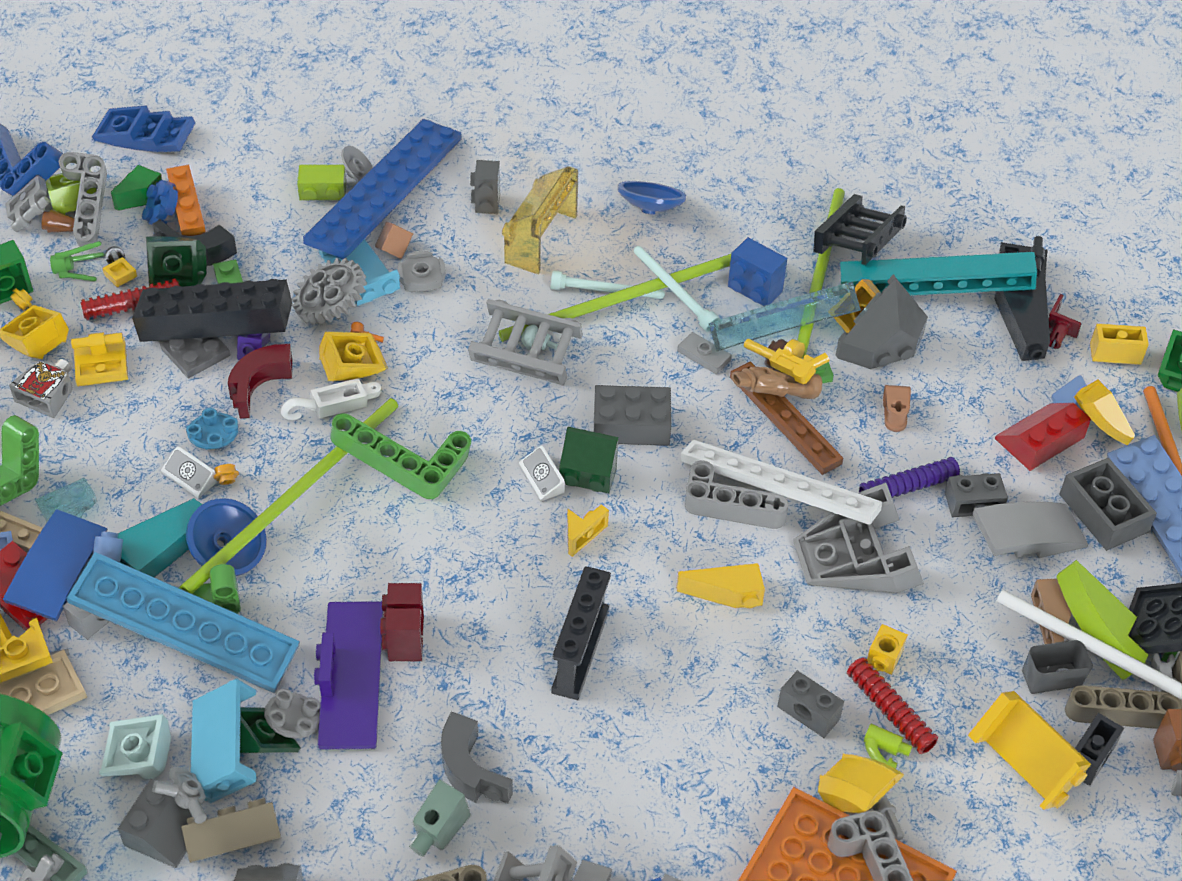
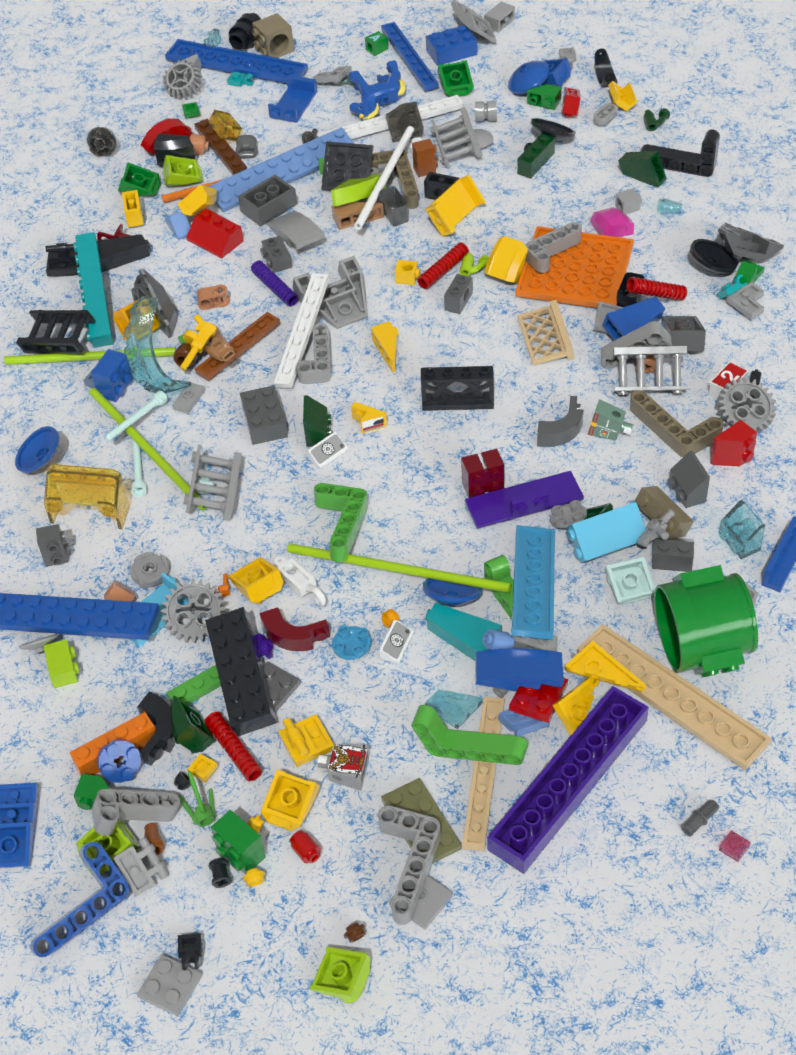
camera: 100 degrees left, 0 degrees up
(679, 824) = (554, 319): none -> tan fence

